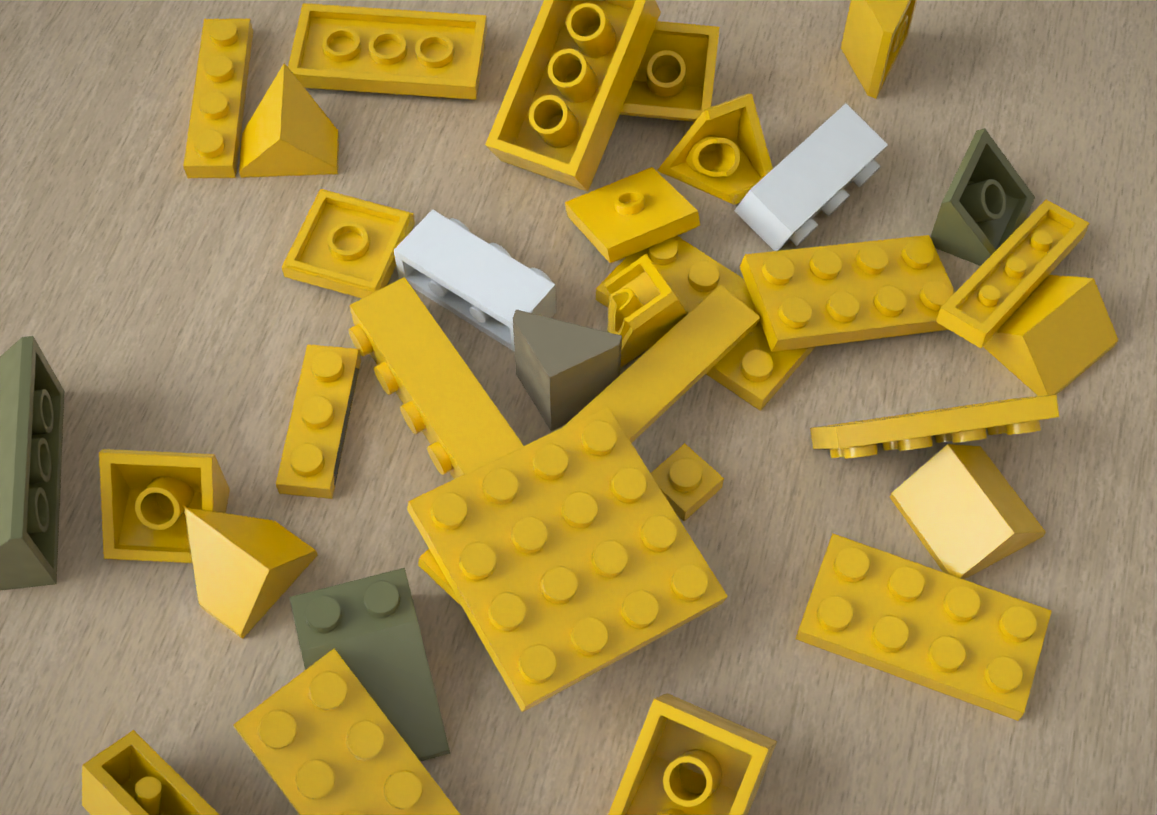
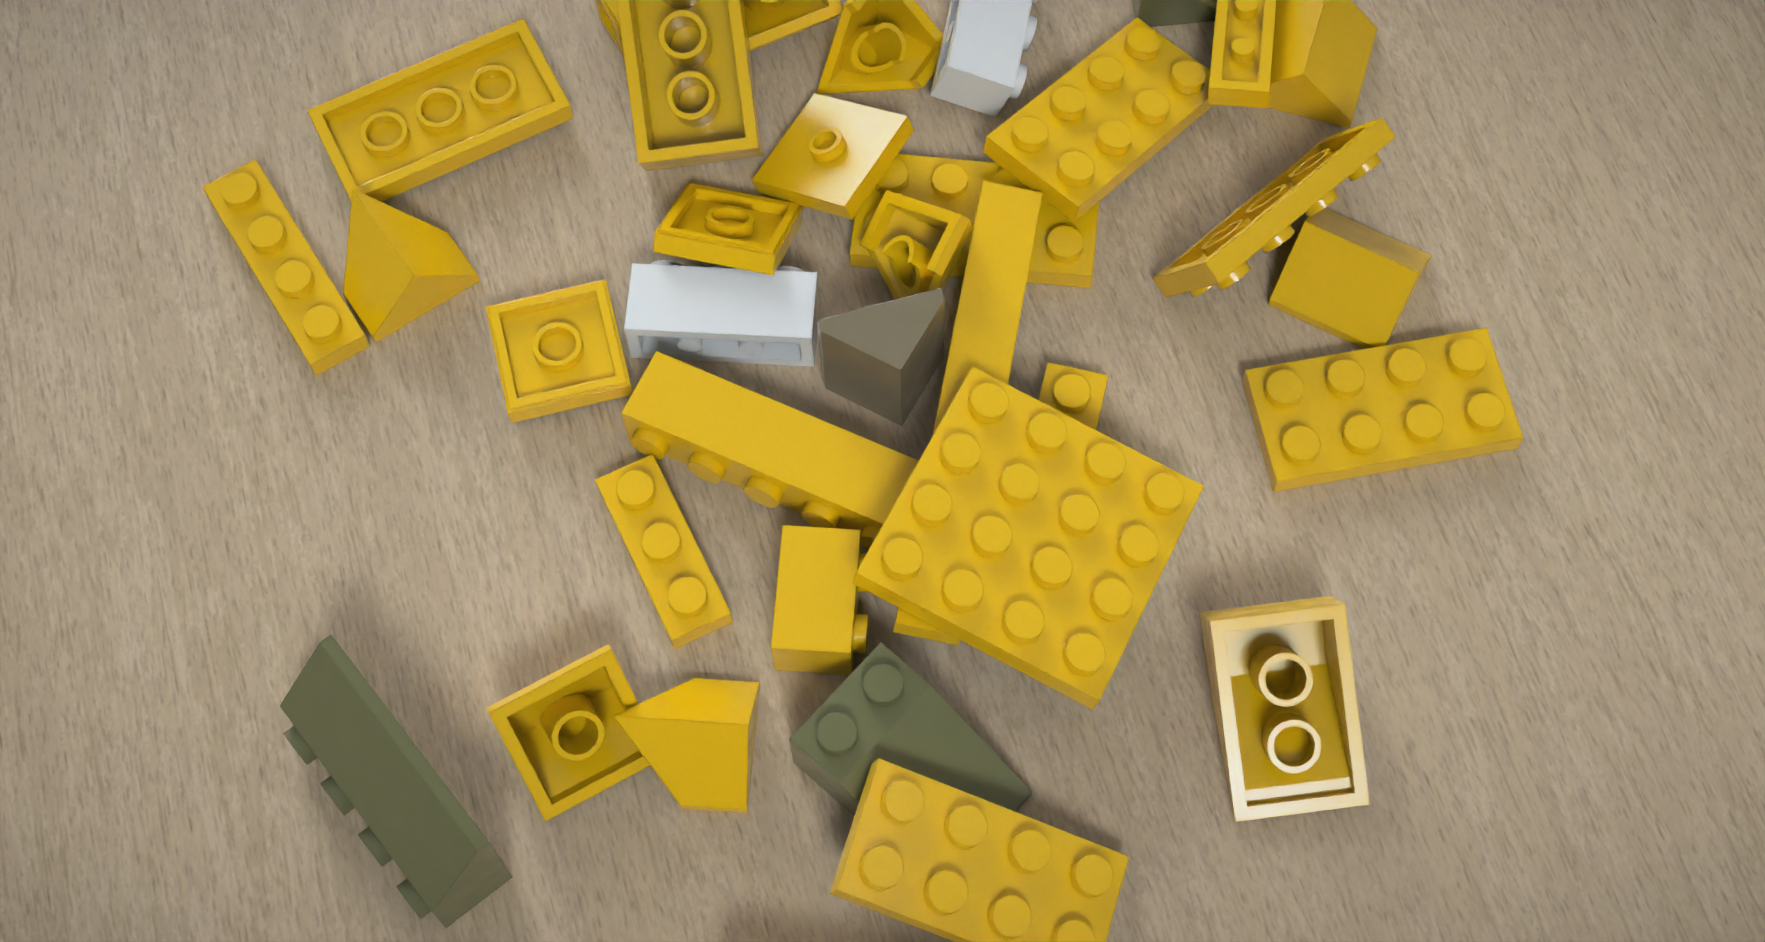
camera: 30 degrees left, 5 degrees up
(376, 526) = (817, 602): none -> yellow brick
(519, 224) = (728, 228): none -> yellow plate

